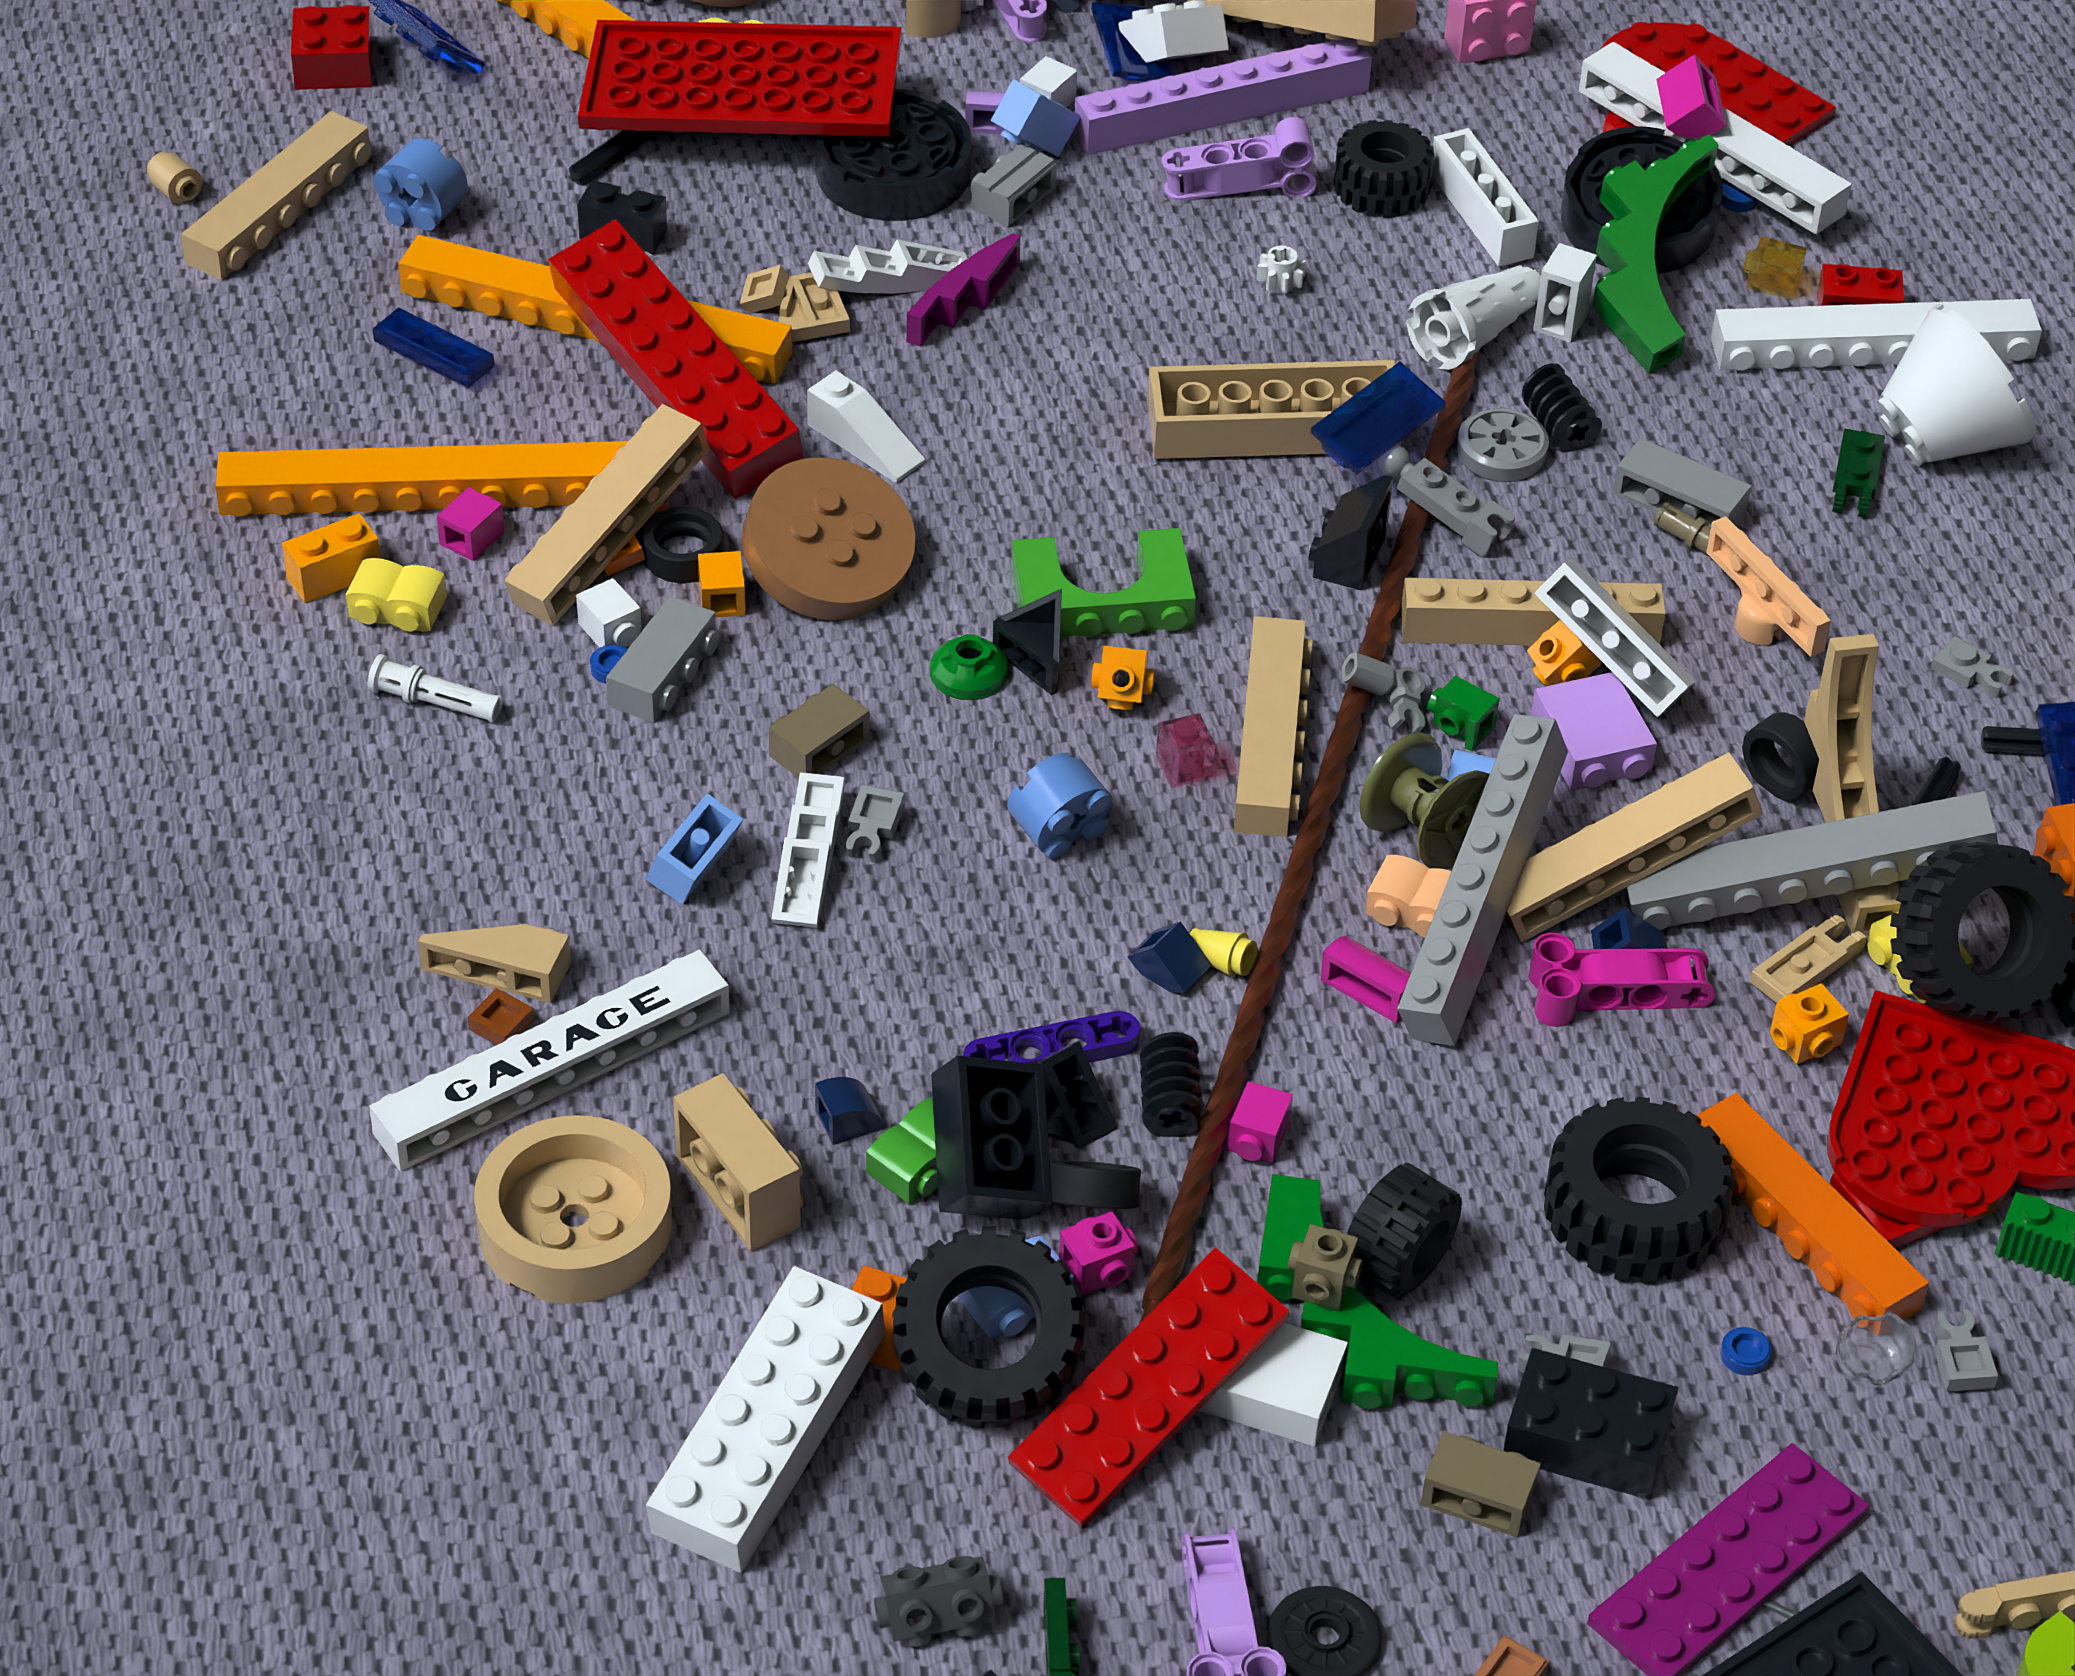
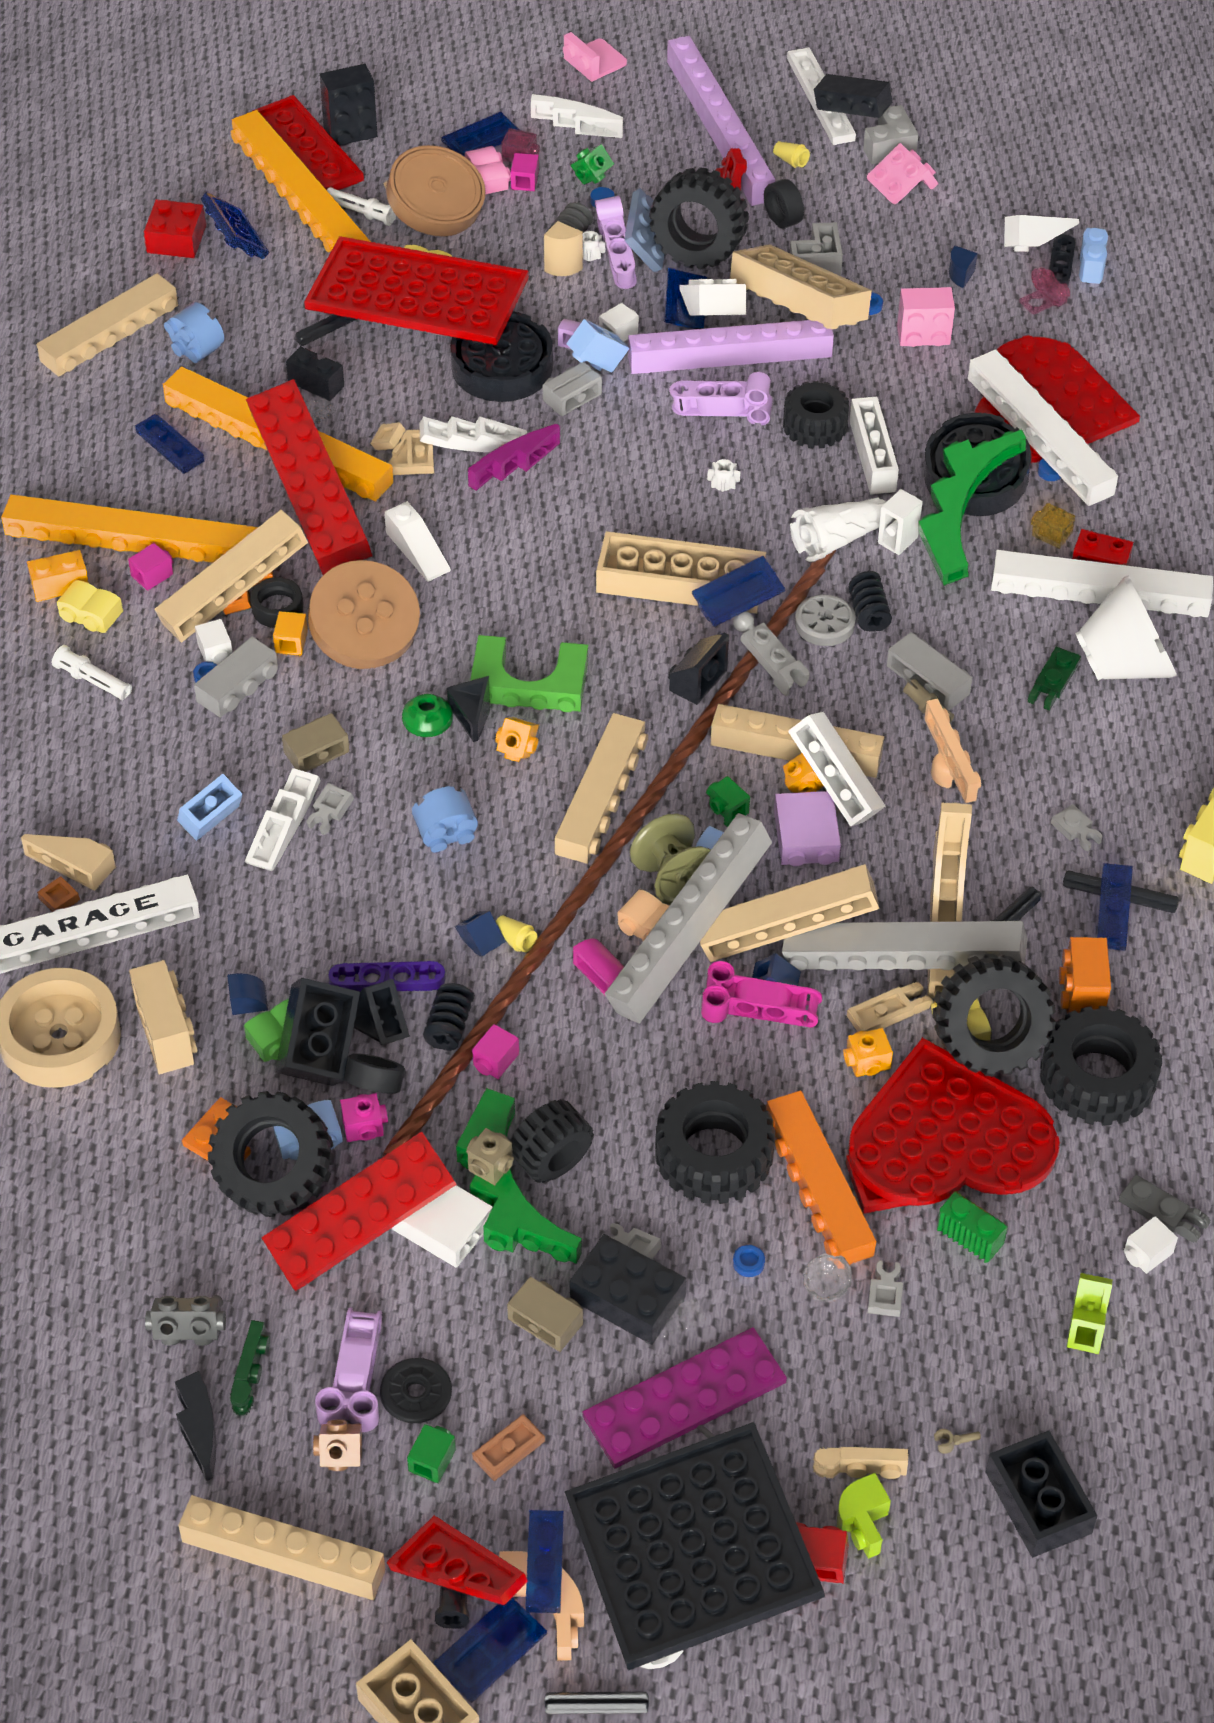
camera: 15 degrees right, 5 degrees up
(174, 177) = (50, 302): tan brick -> none
(766, 1419) = (122, 1185): white brick -> none
(1185, 750) = (539, 795): clear pink brick -> none
(1399, 688) = (693, 776): light grey bar -> none
(1691, 100) = (1028, 400): dark pink brick -> none
(1767, 765) = (917, 867): black tyre -> none

